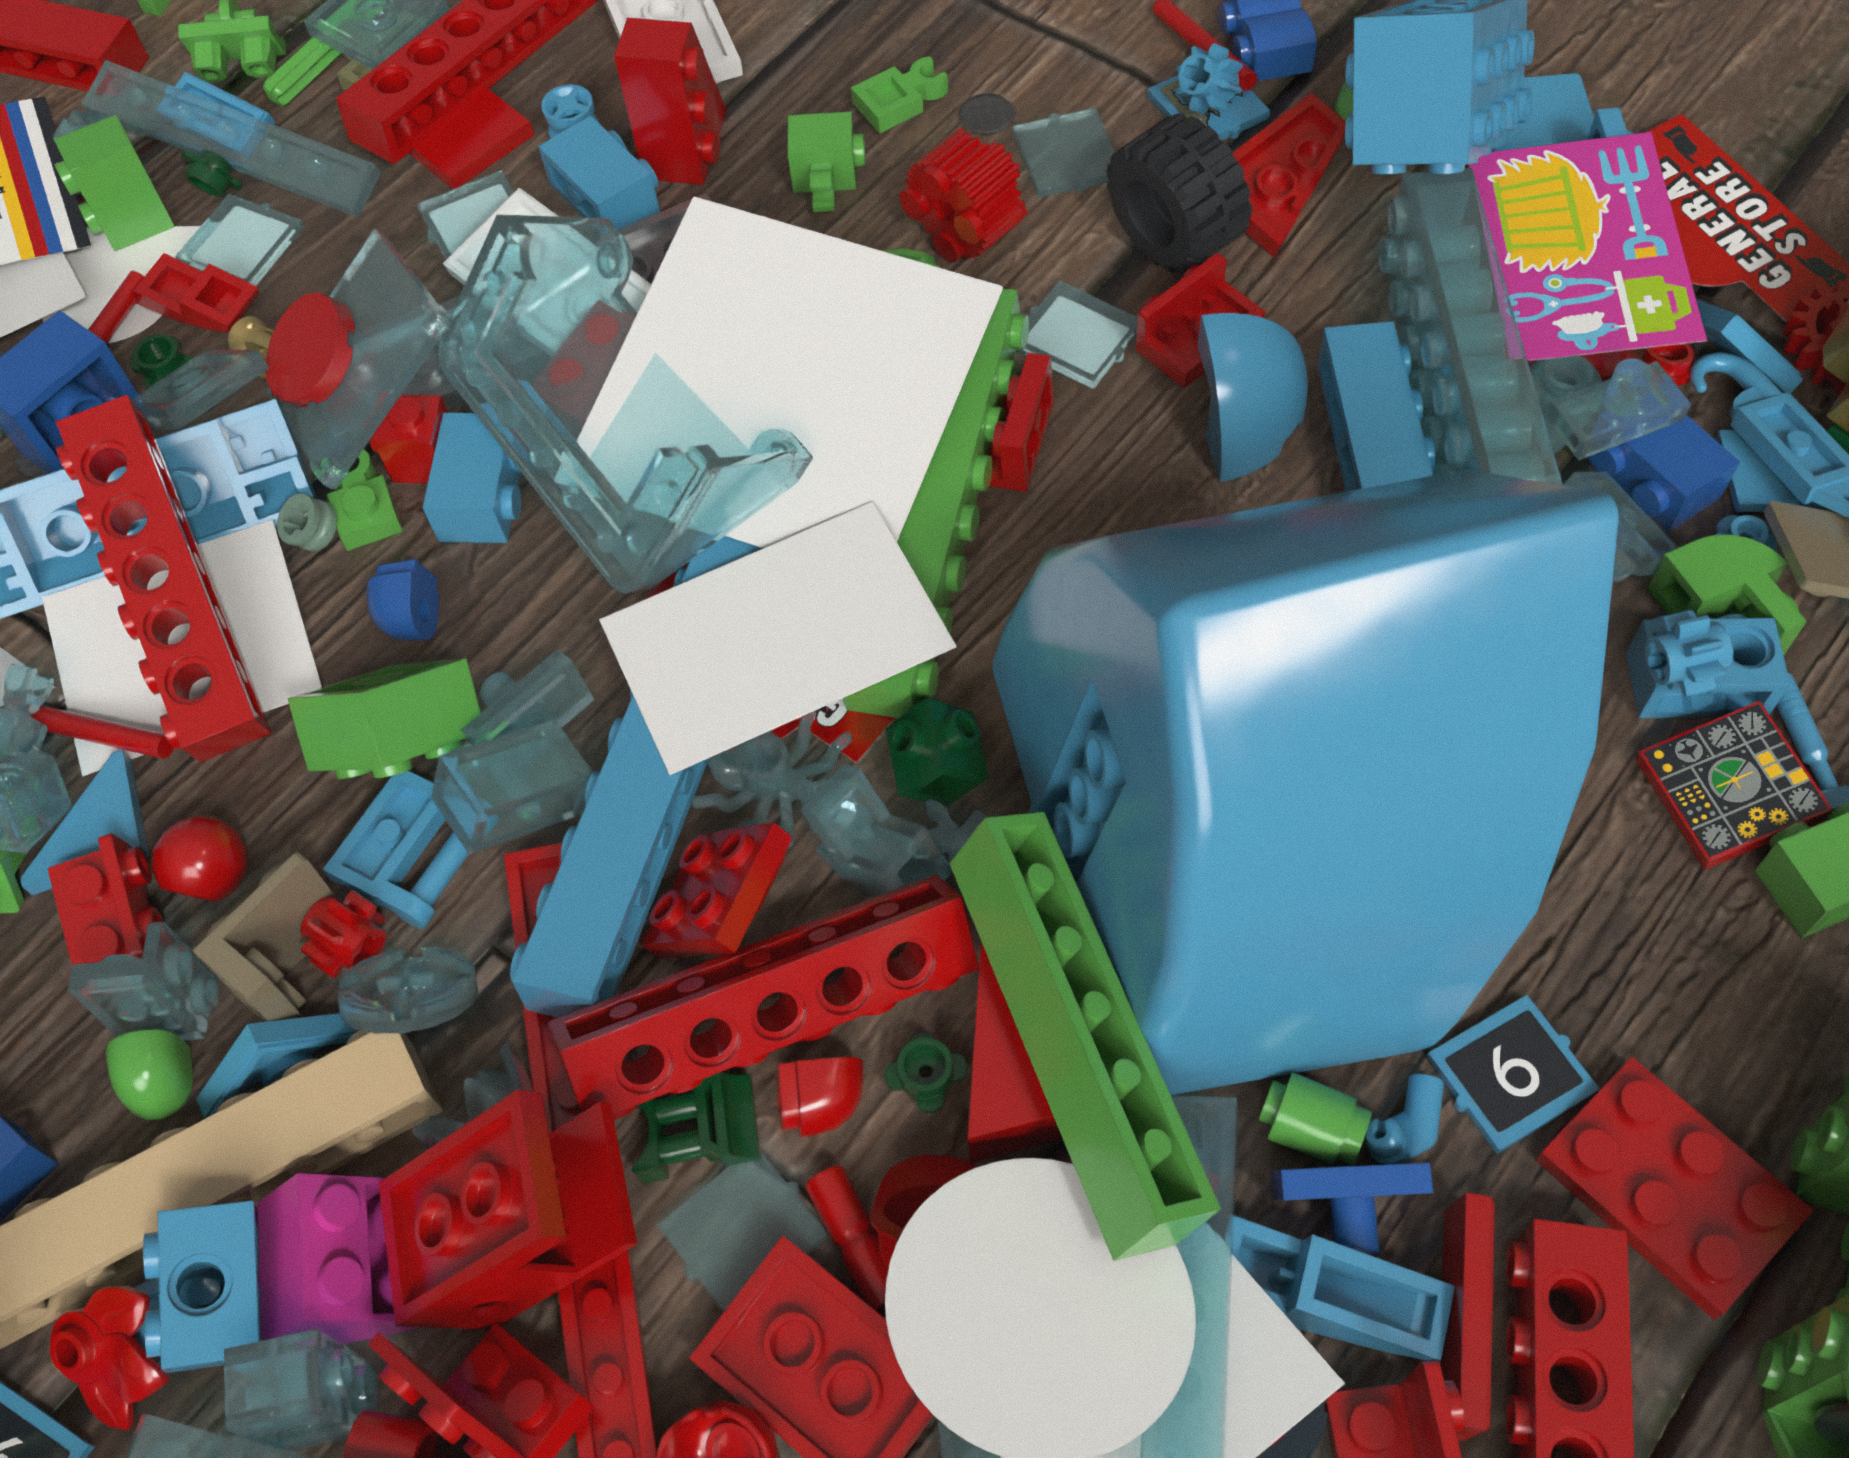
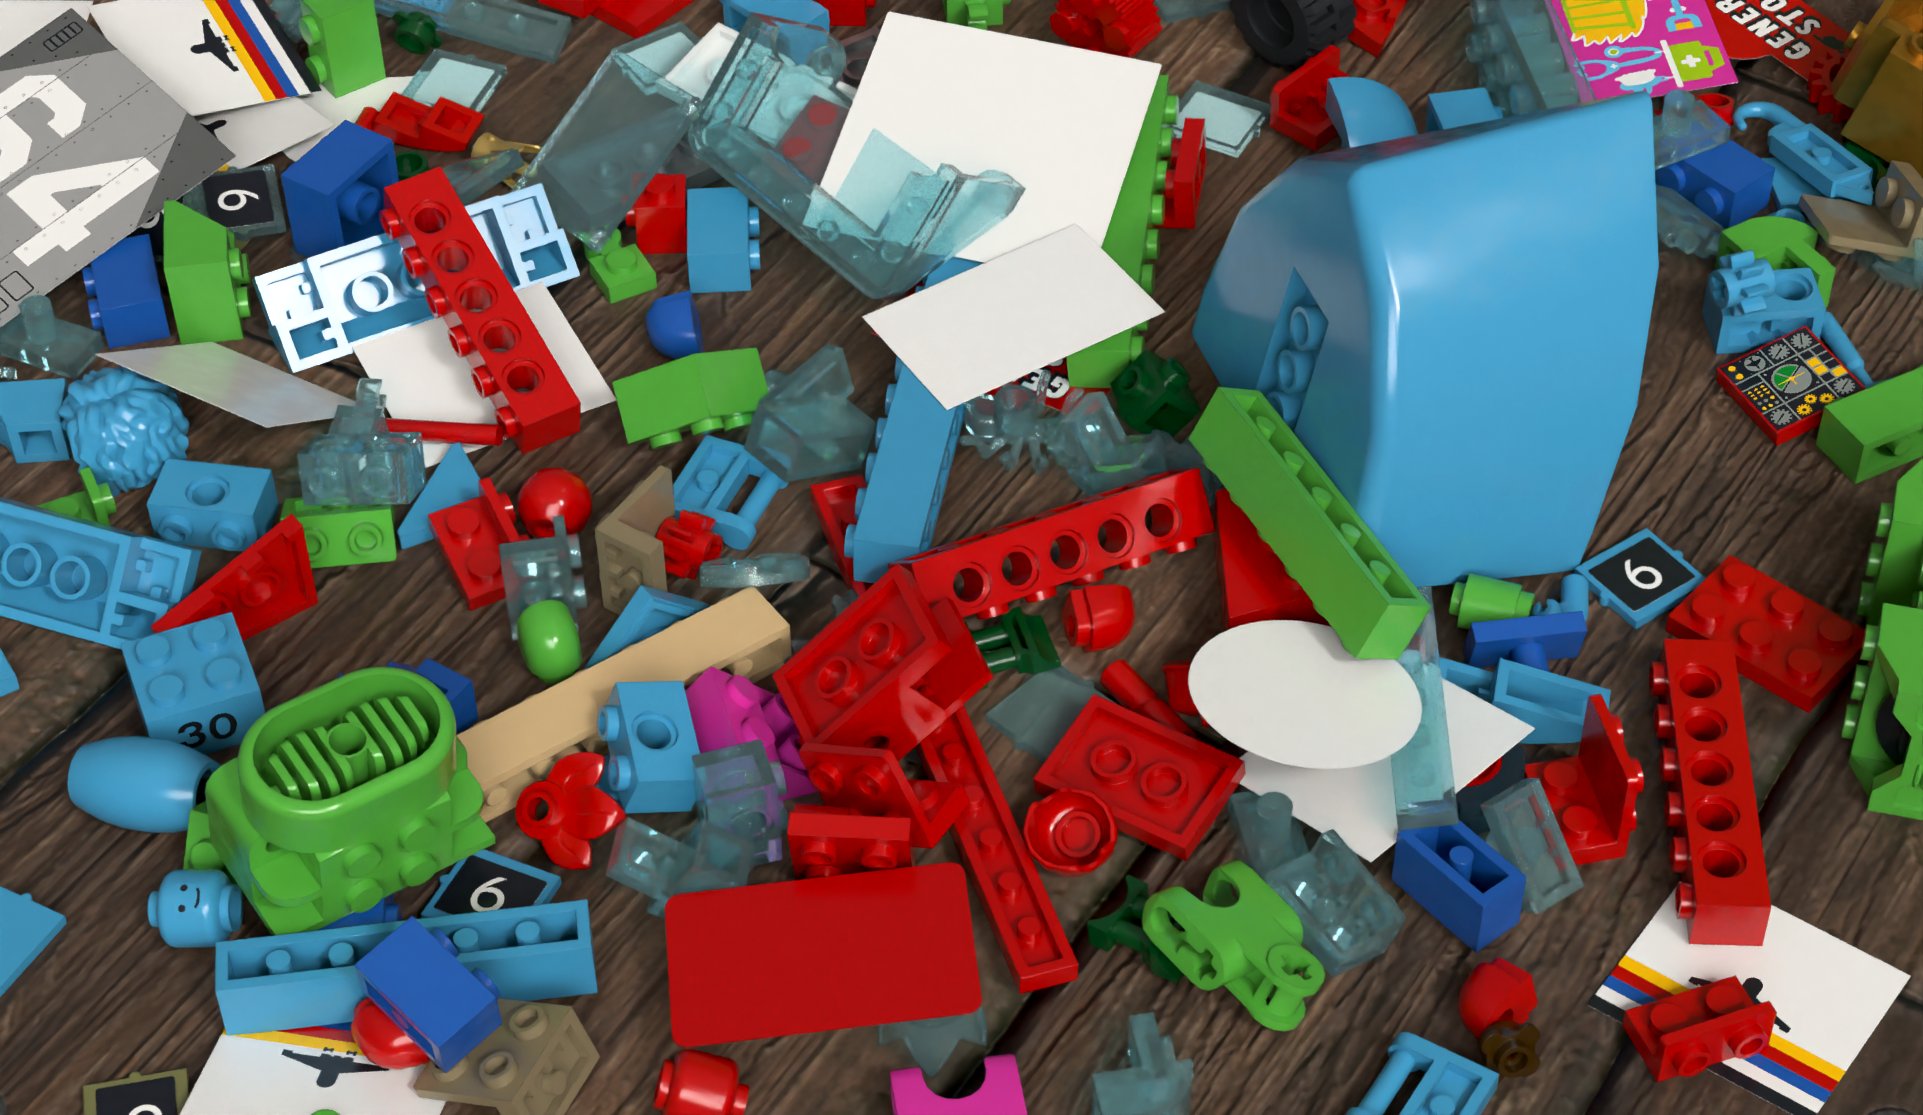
camera: 10 degrees left, 15 degrees down
(306, 522) = (577, 266): sand green bush -> none
(309, 350) = (563, 145): red tile -> none
(717, 891) = (996, 488): red plate -> none
(922, 1052) = (1182, 603): dark green plate -> none
(1468, 1338) = (1620, 675): red tile -> none
(1735, 336) = (1759, 85): dark azure tile -> none

